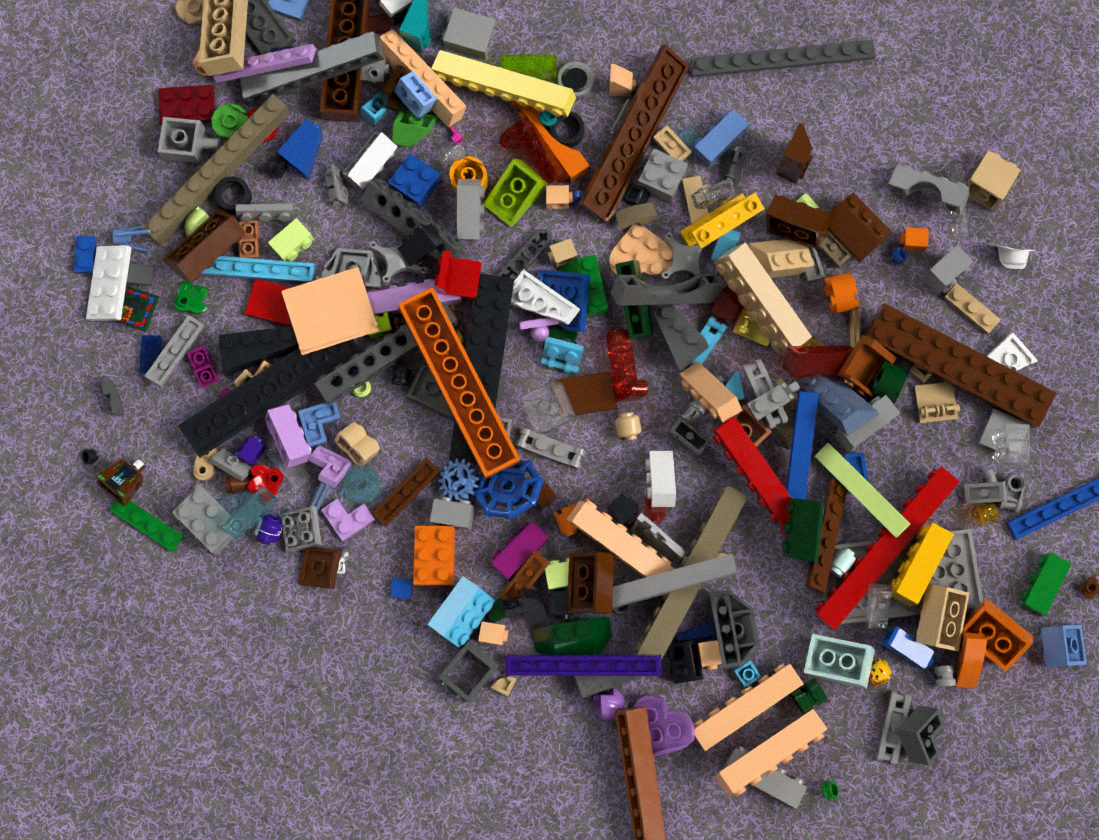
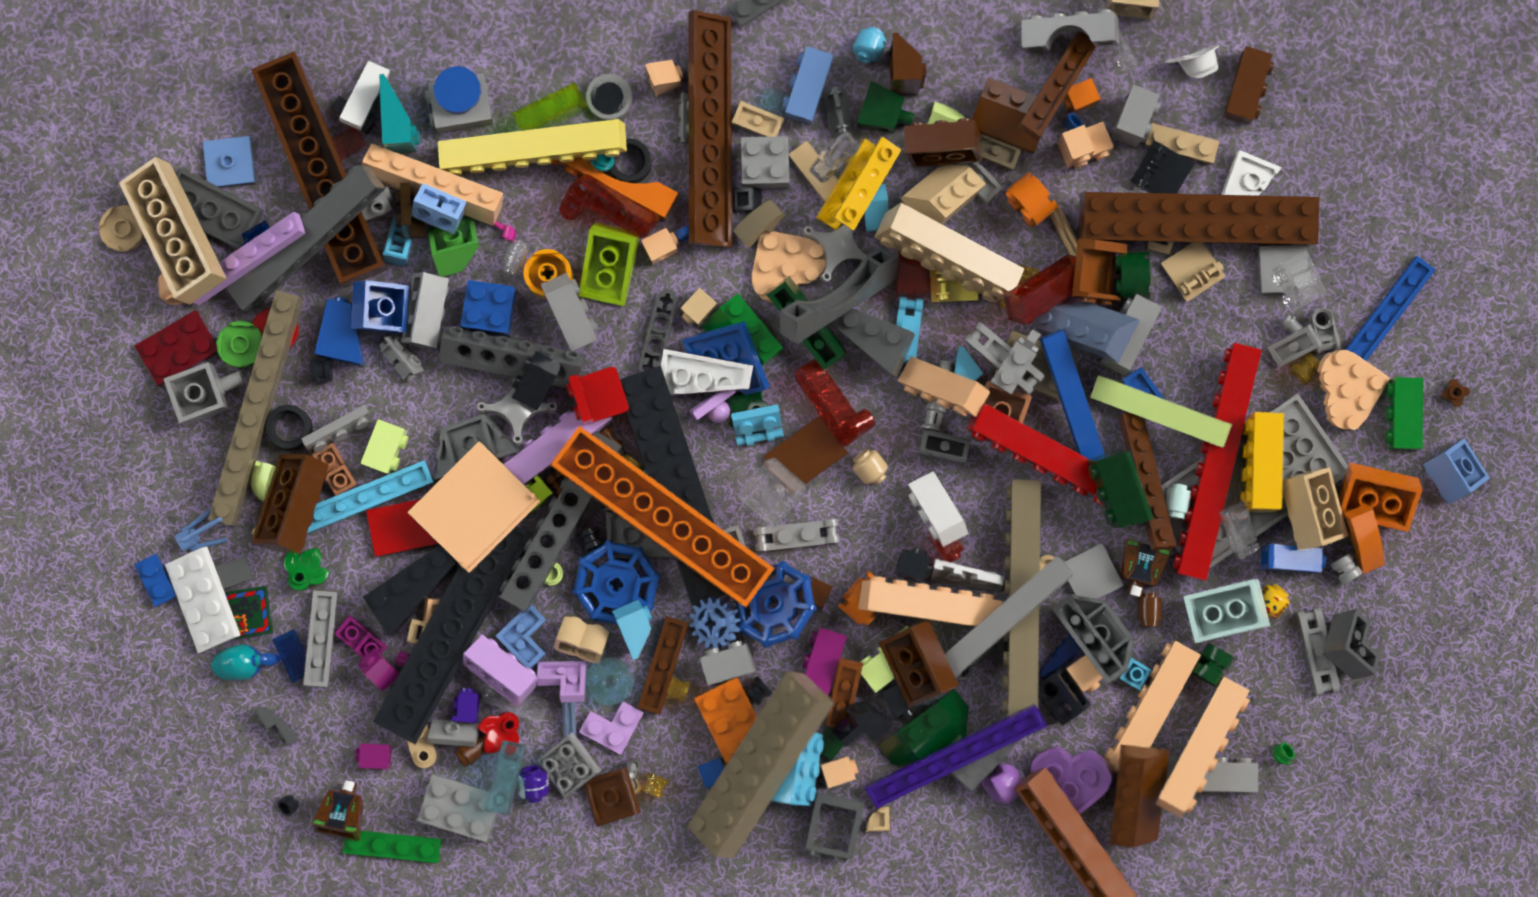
camera: 30 degrees left, 5 degrees up
(112, 340) = (241, 662): none -> teal hair
(168, 452) = (374, 756): none -> magenta brick
(203, 392) = (378, 669): none -> magenta brick
(338, 142) = (379, 307): none -> blue brick
(355, 575) = (655, 785): none -> clear yellow wheel
(392, 417) = (608, 572): none -> blue plate
(399, 452) = (634, 625): none -> medium azure slope
(407, 515) = (678, 689): none -> clear yellow wheel
(436, 596) = (760, 764): none -> dark tan brick
(464, 545) = (757, 690): none -> black wheel
(471, 21) = (457, 90): none -> blue tile
(709, 756) = (1137, 789): none -> reddish brown slope
(752, 584) = (1093, 573): none -> light grey tile
(765, 179) = (883, 110): none -> dark green torso
(778, 131) = (869, 45): none -> medium azure head
(781, 632) = (1149, 610): none -> reddish brown brick
(792, 596) = (1141, 565): none -> torso
(898, 273) = (1085, 144): none -> light nougat brick
(900, 221) = (1057, 86): none -> reddish brown plate
(949, 318) = (1162, 170): none -> black hinge
(1012, 544) = (1350, 388): none -> light nougat plate
(1042, 290) = (1248, 85): none -> reddish brown brick

